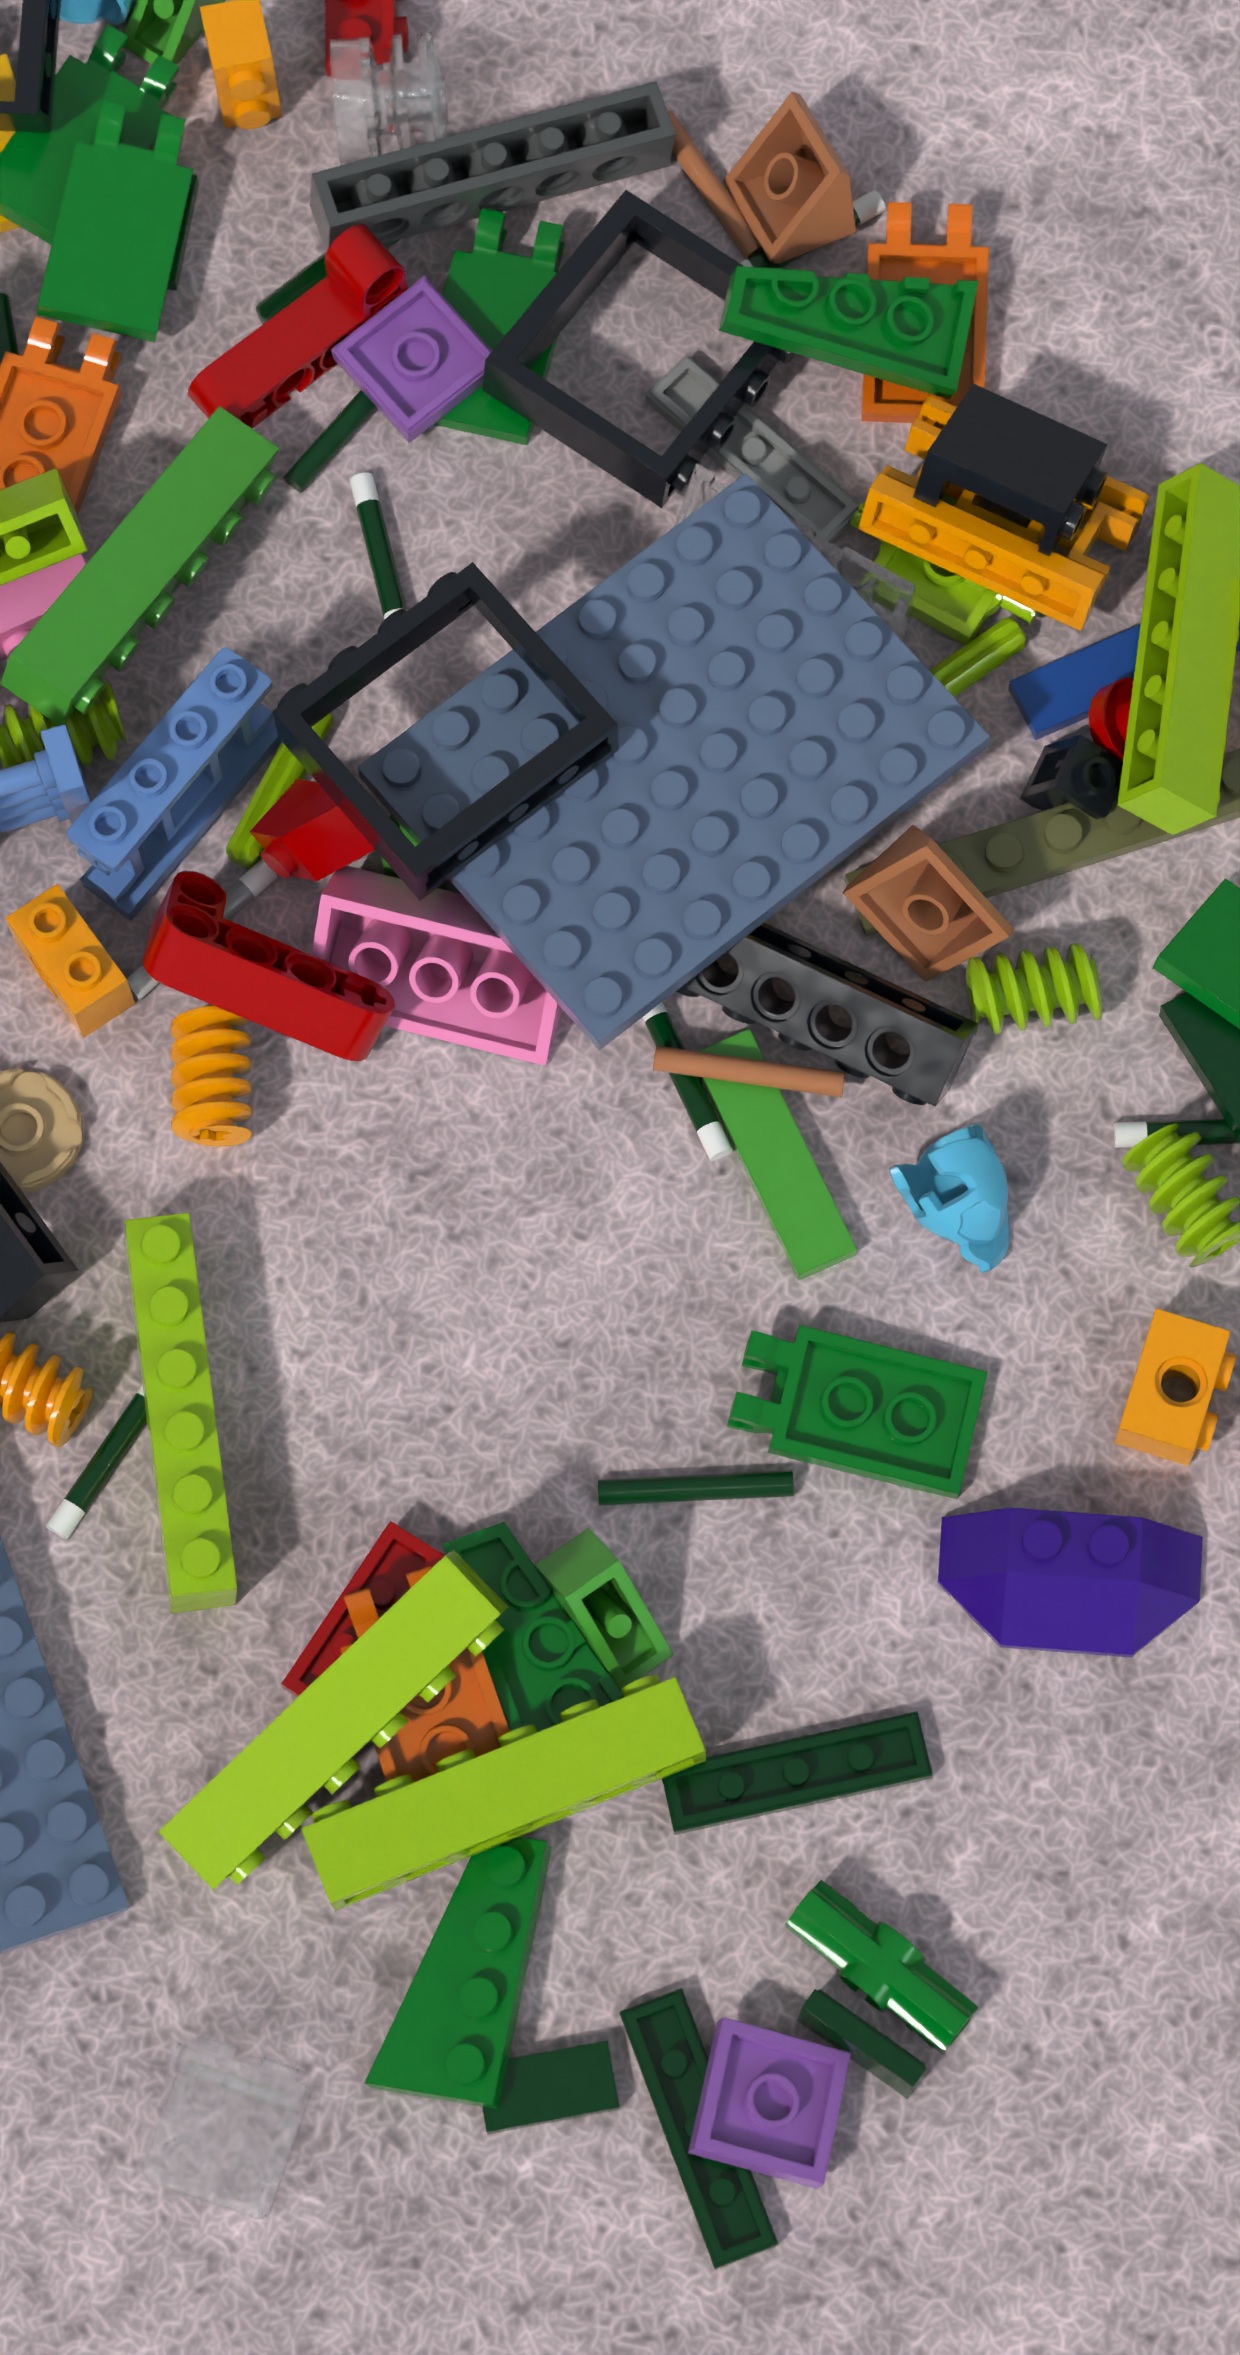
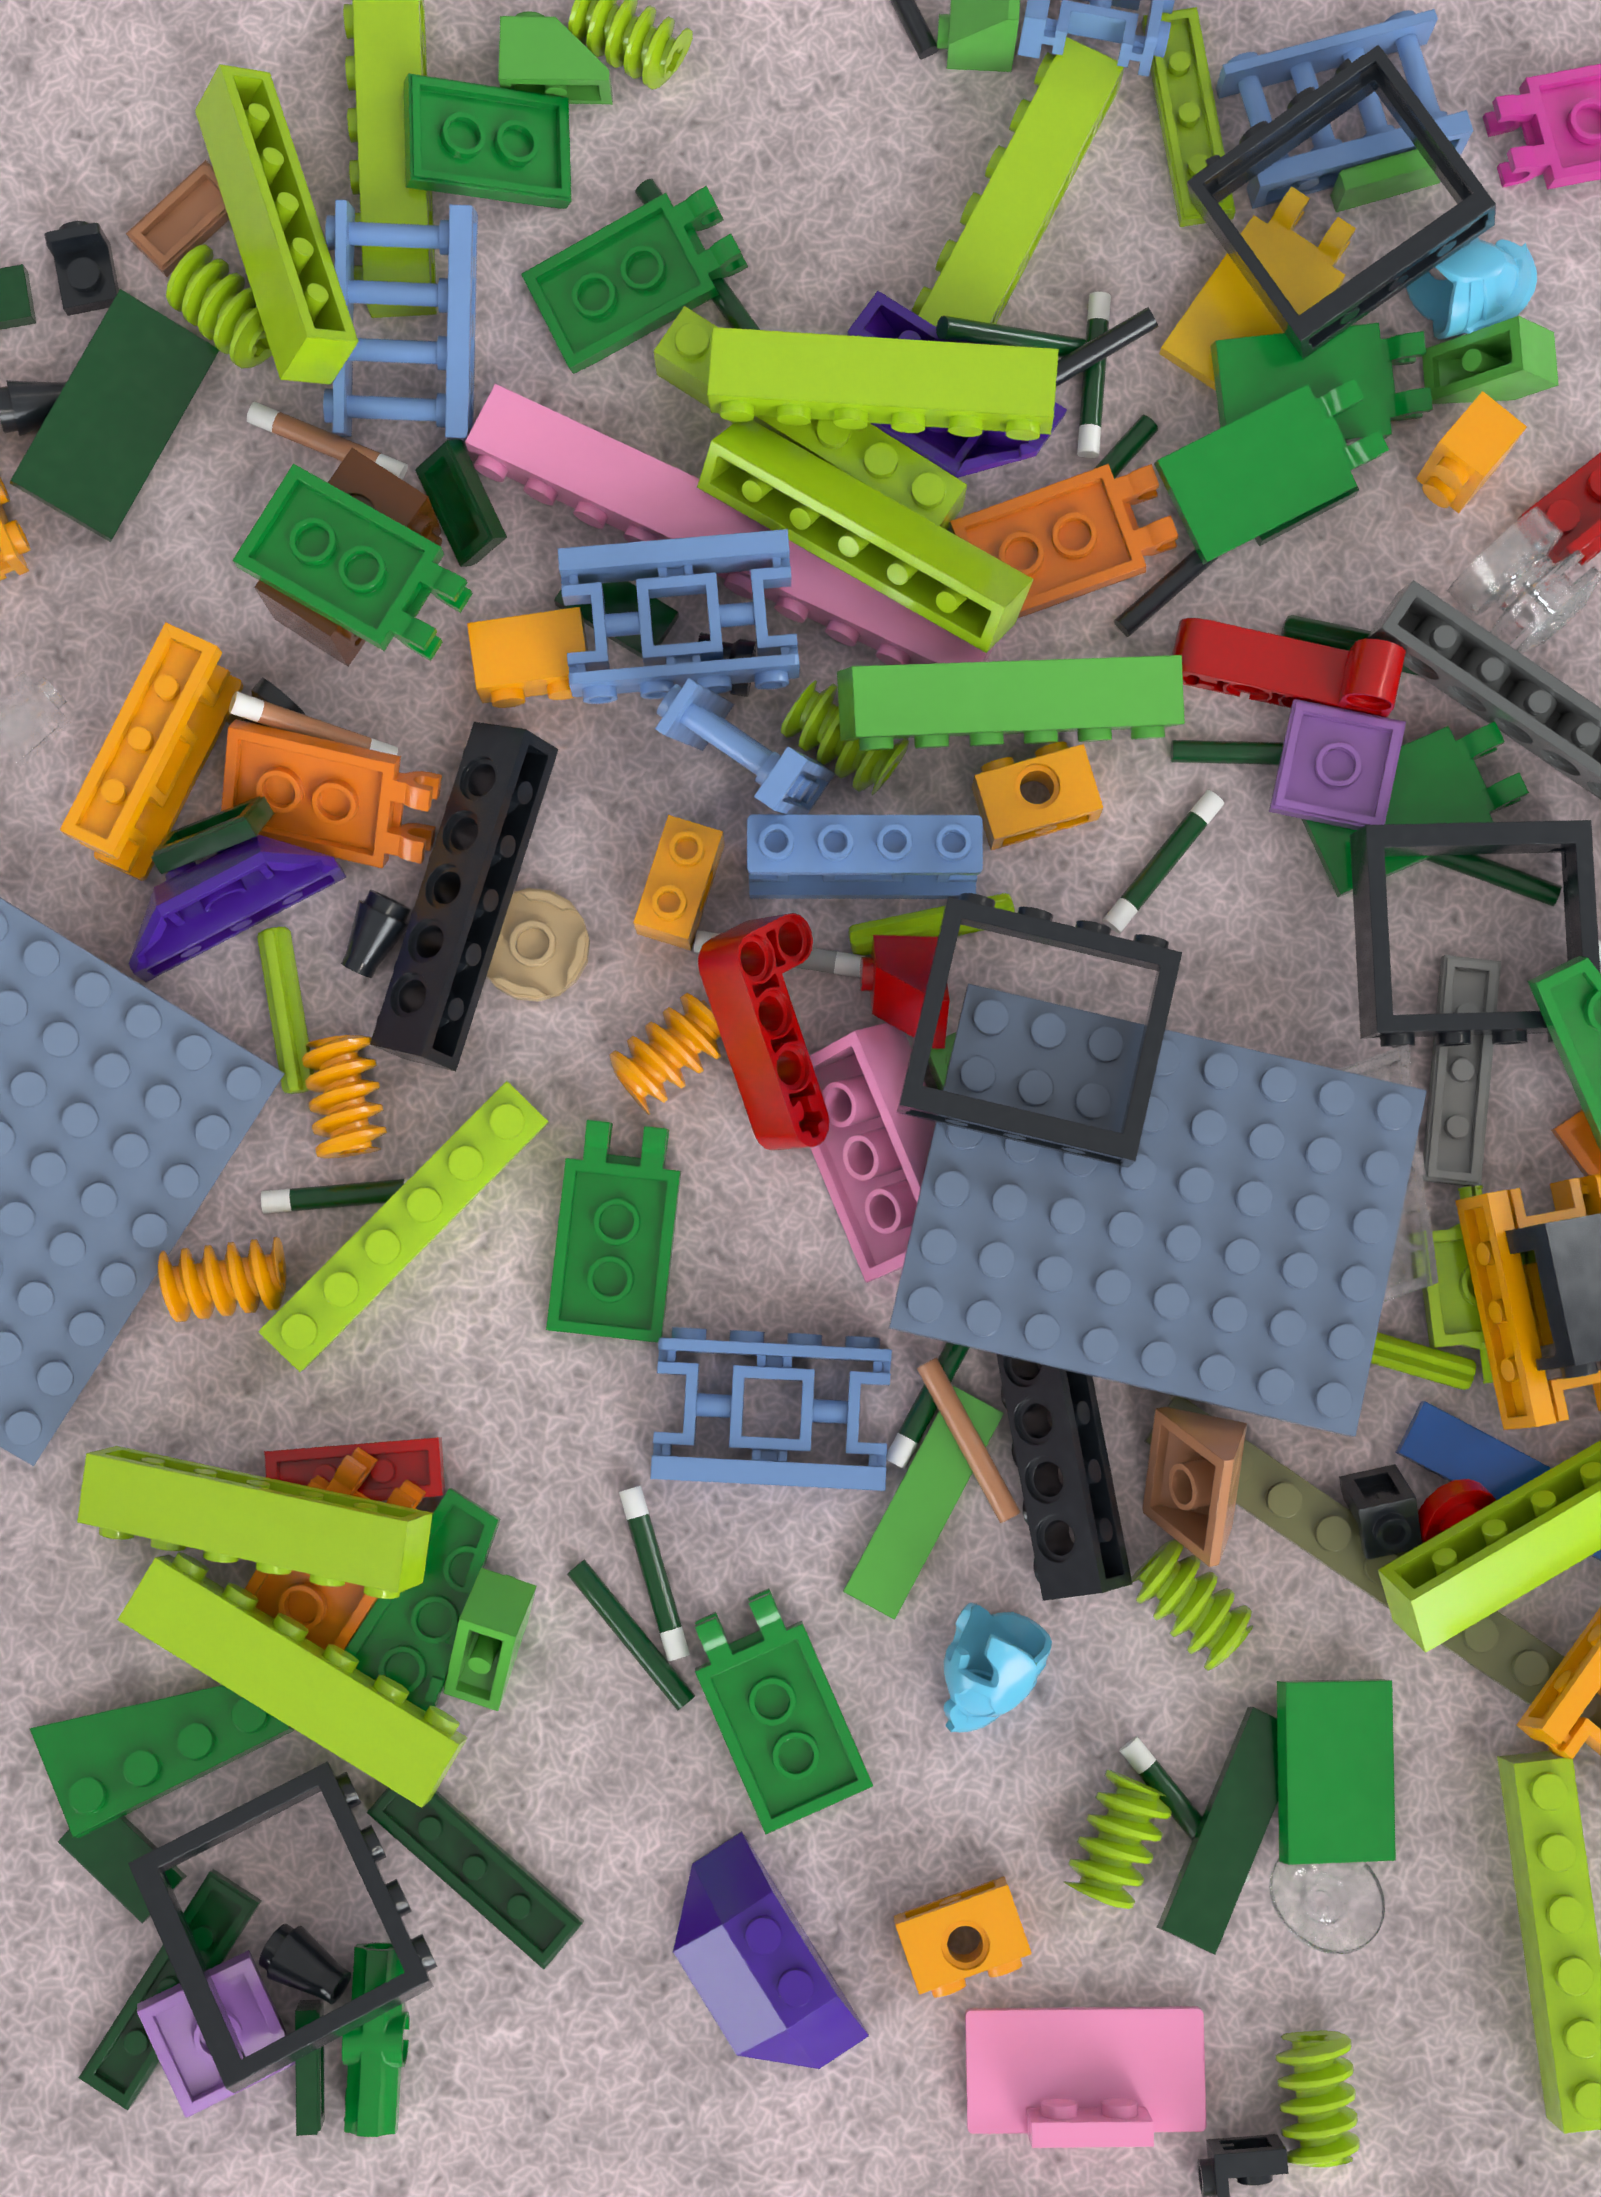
camera: 50 degrees right, 10 degrees up
(98, 1607) = (223, 1281): none -> light orange piece
(150, 395) = (1161, 593): none -> black bar
(246, 581) = (1013, 819): none -> light orange brick
(336, 1246) = (614, 1239): none -> green tile
(614, 305) = (1501, 876): none -> dark green bar
(636, 1253) = (769, 1455): none -> medium blue fence
(657, 1428) = (654, 1573): none -> dark green bar
(707, 2063) = (389, 1900): none -> black window
(766, 1981) = (303, 1964): none -> black cone

